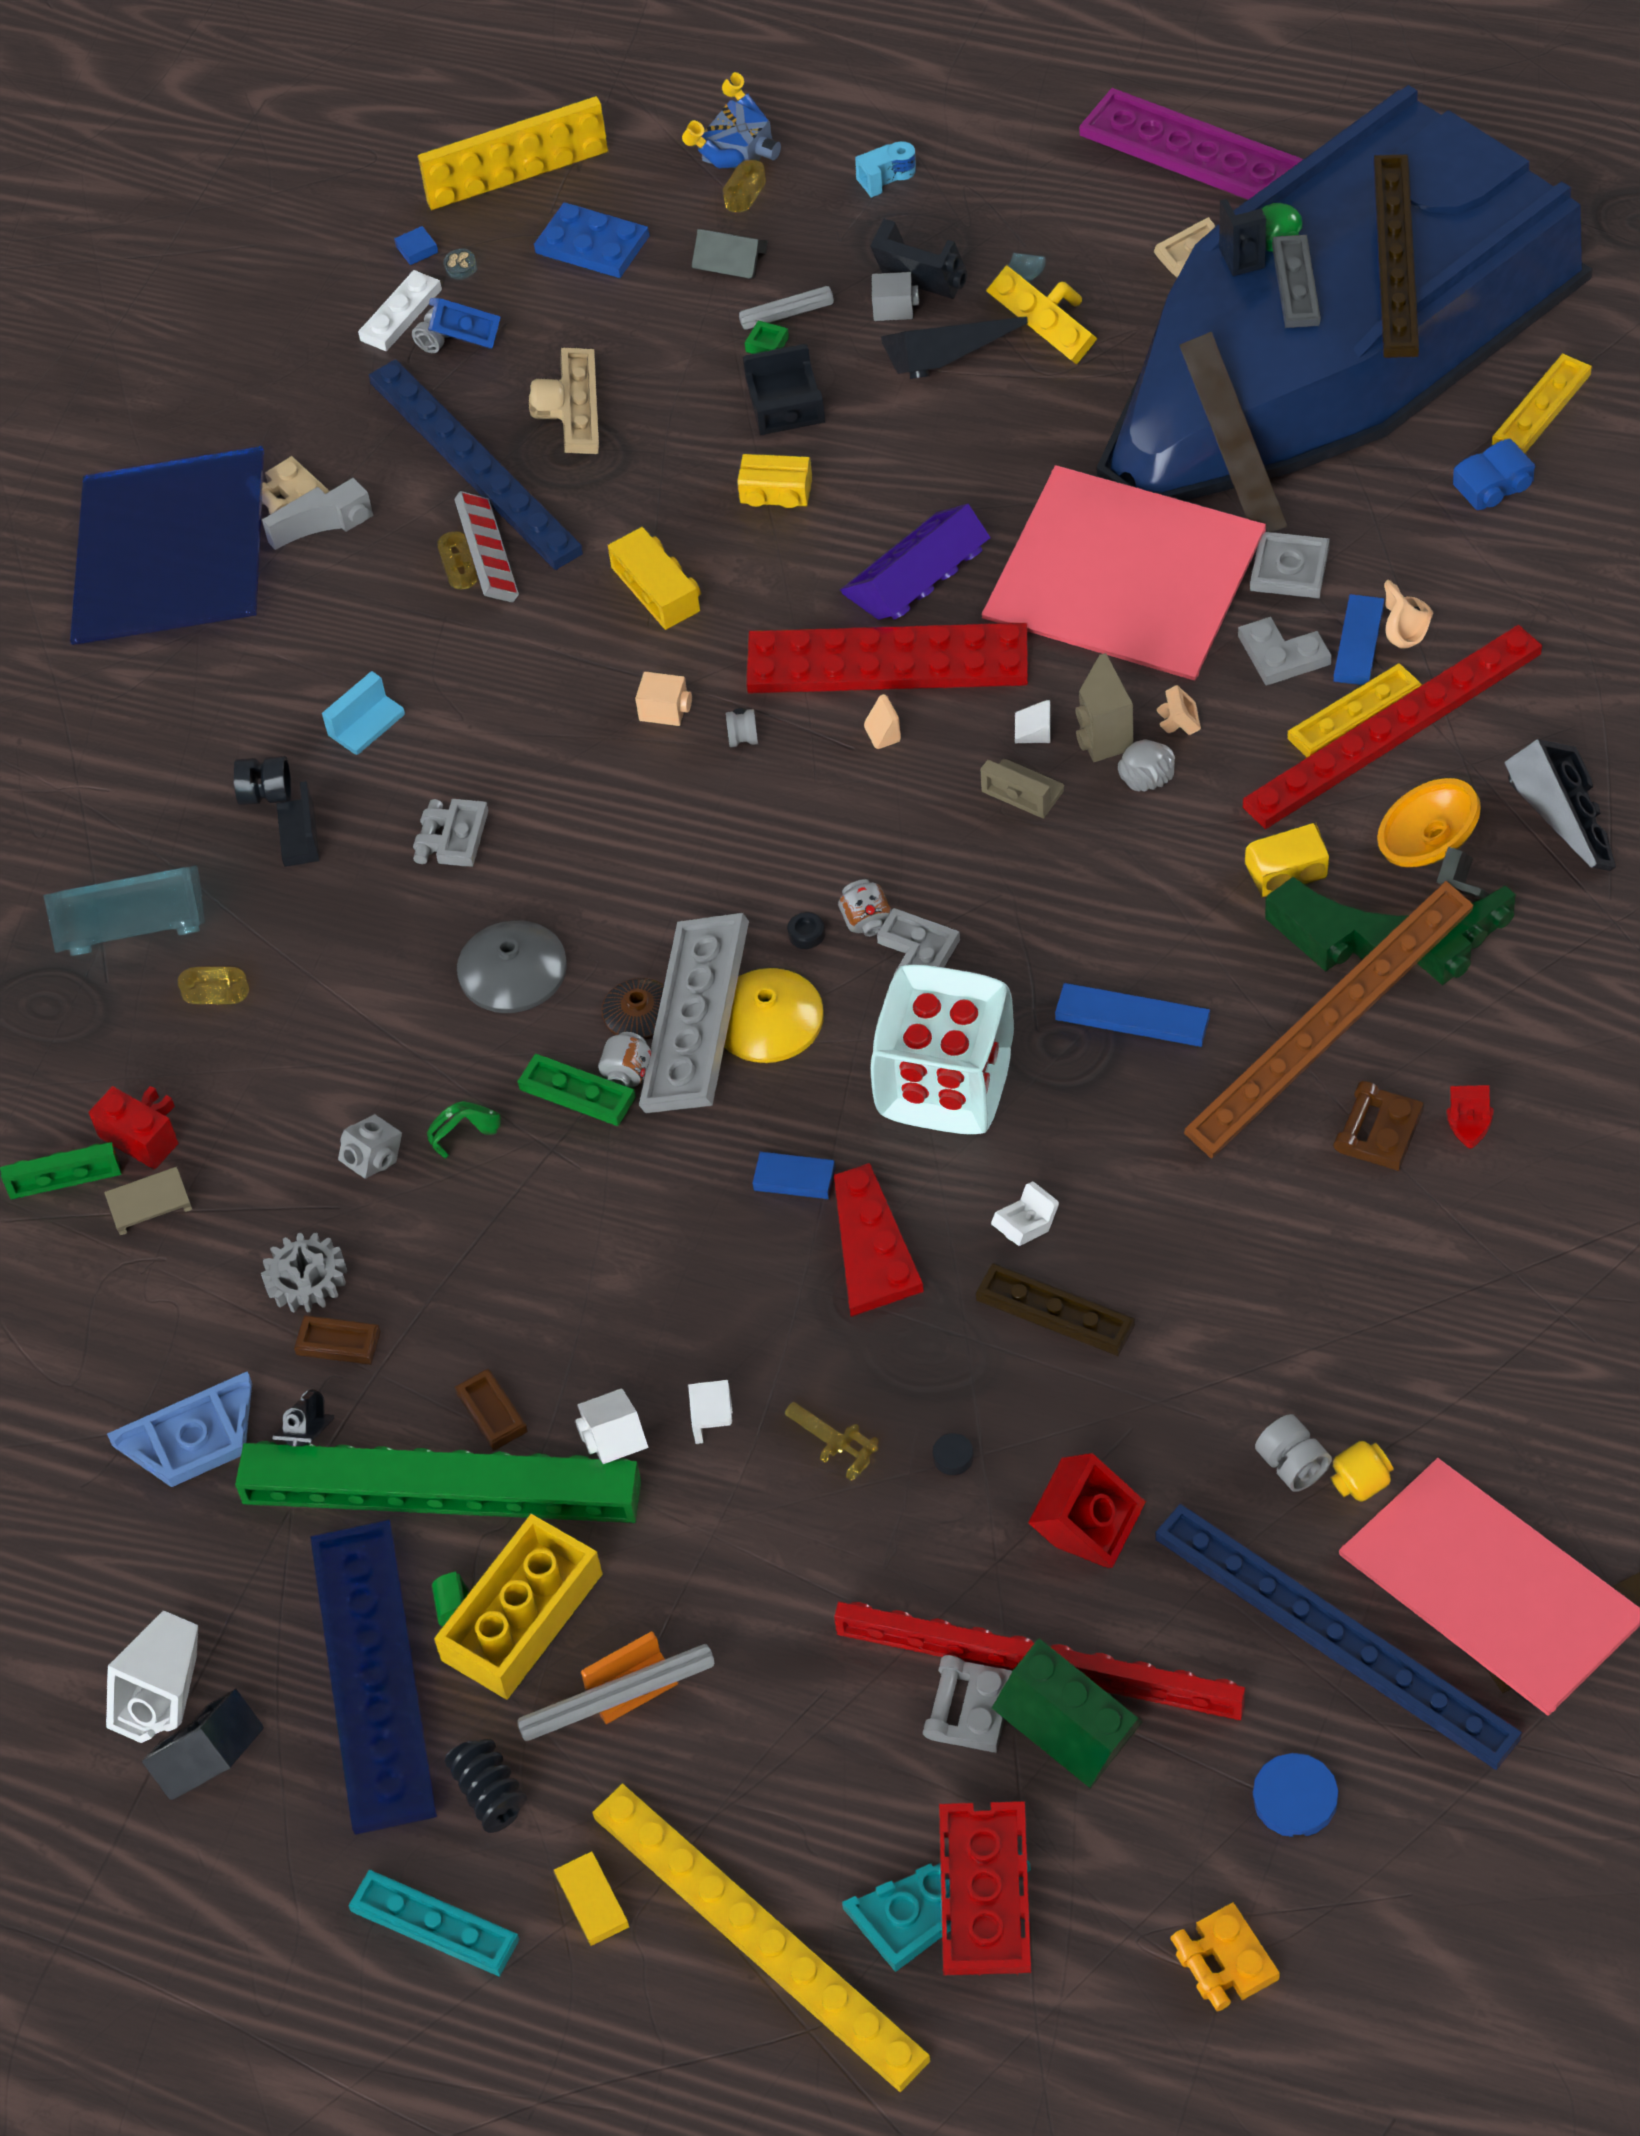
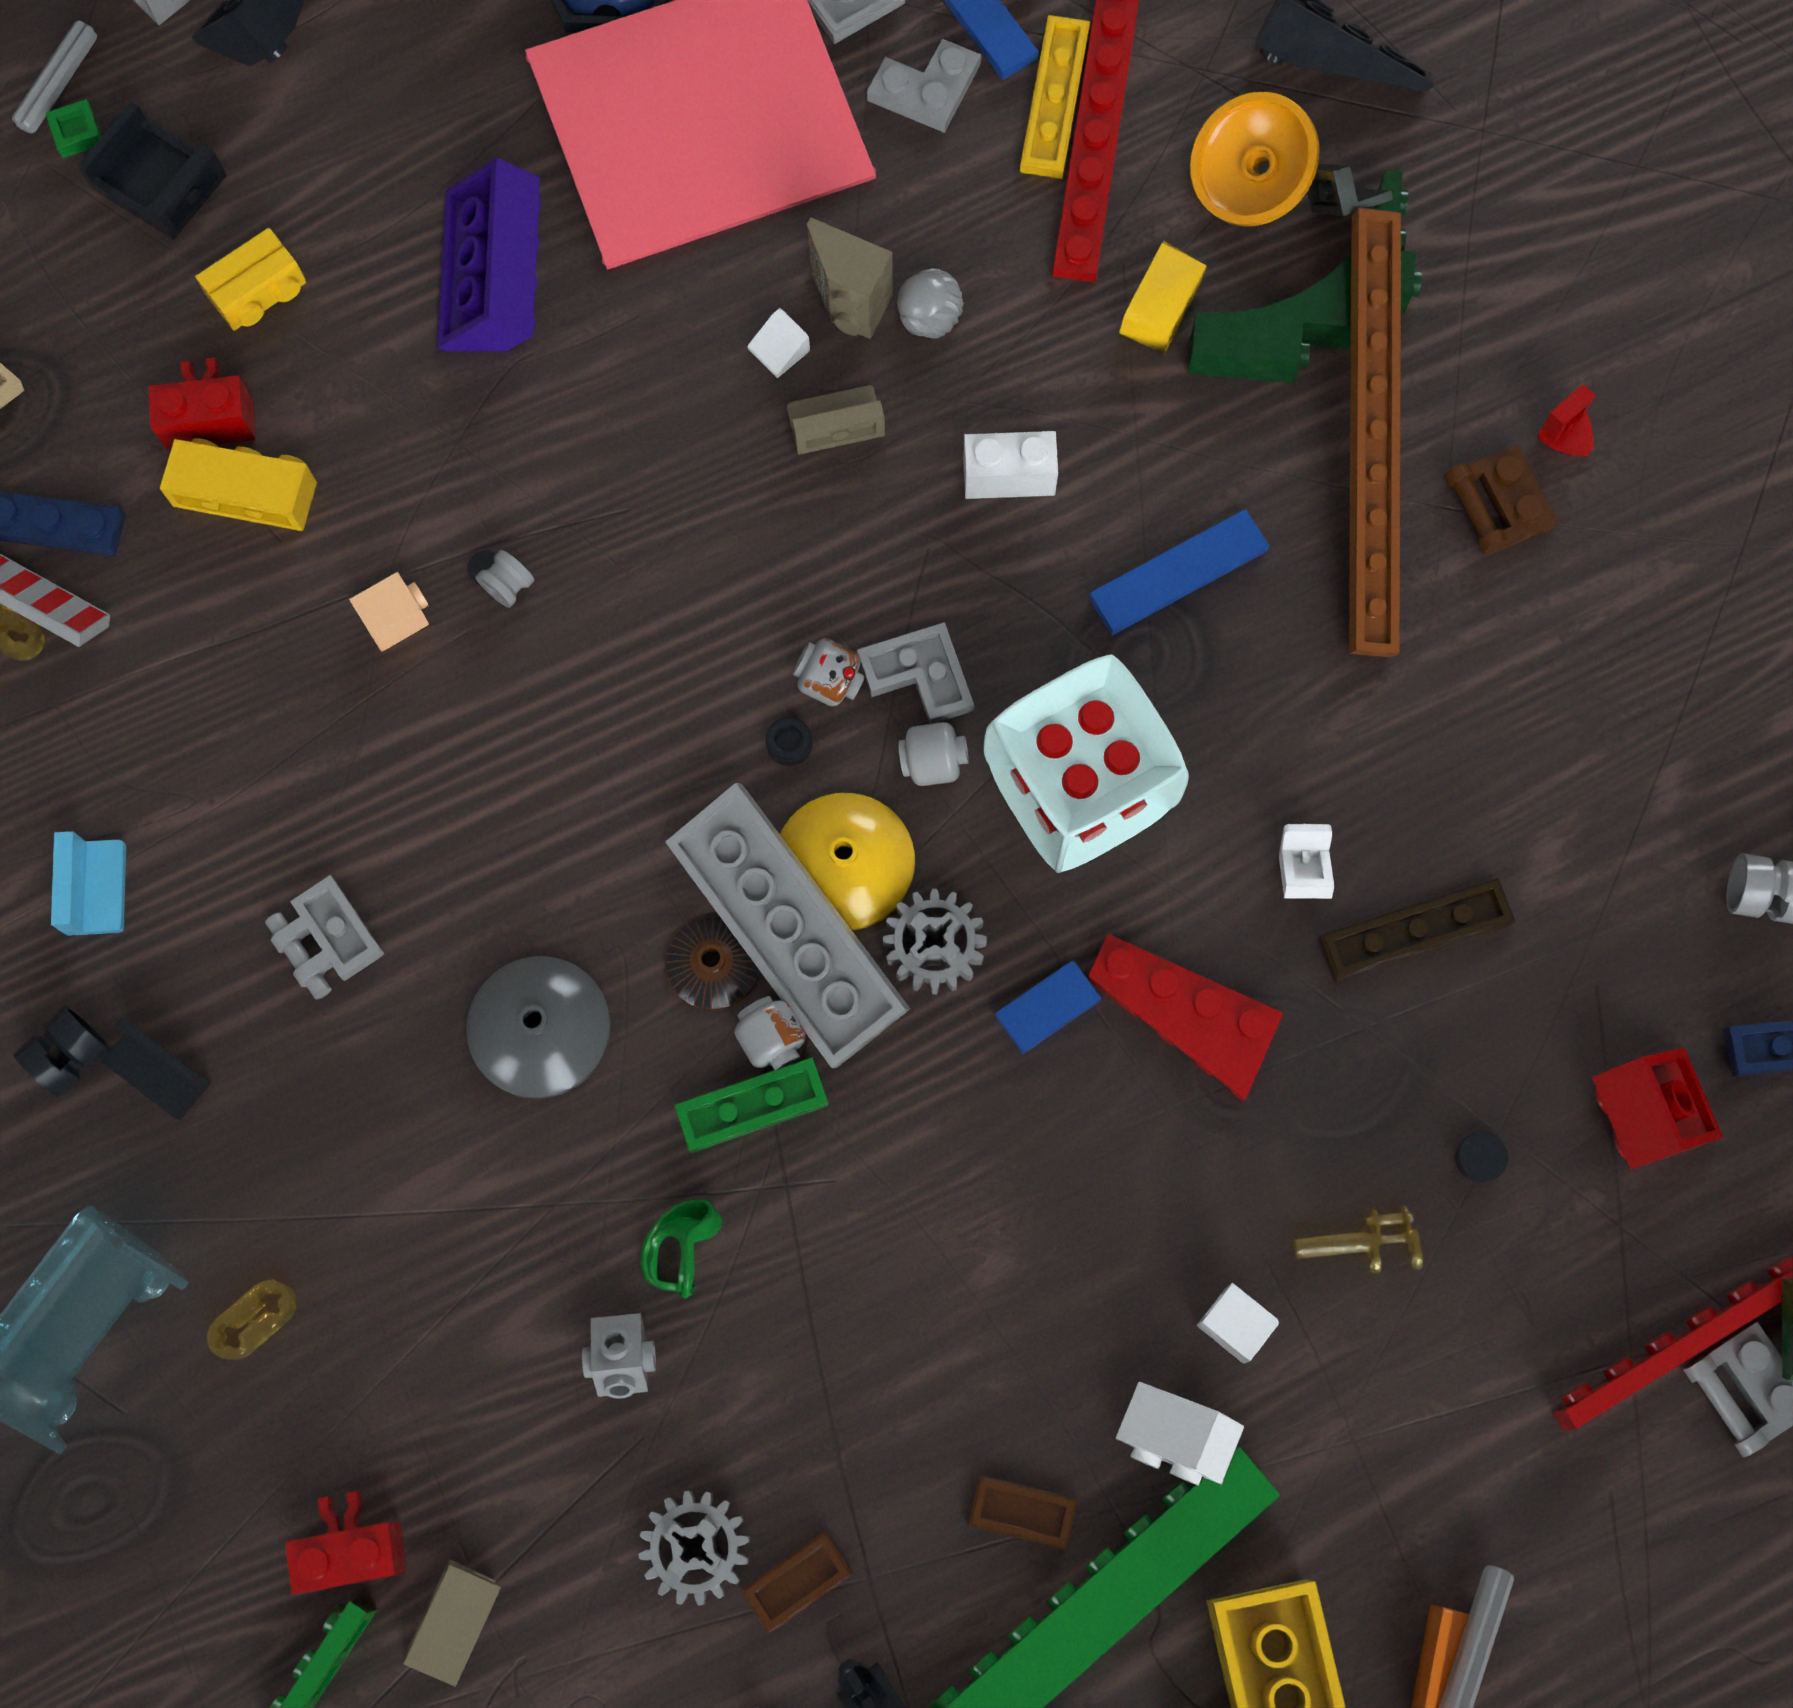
camera: 50 degrees left, 20 degrees up
(678, 525) = (203, 409): none -> red brick
(767, 1087) = (921, 926): none -> light grey gear
(868, 991) = (932, 754): none -> light grey head
(883, 723) = (637, 460): light nougat slope -> none
(887, 658) = (561, 387): red plate -> none
(1092, 879) = (1010, 464): none -> white brick
(1180, 710) = (908, 221): light nougat tile -> none

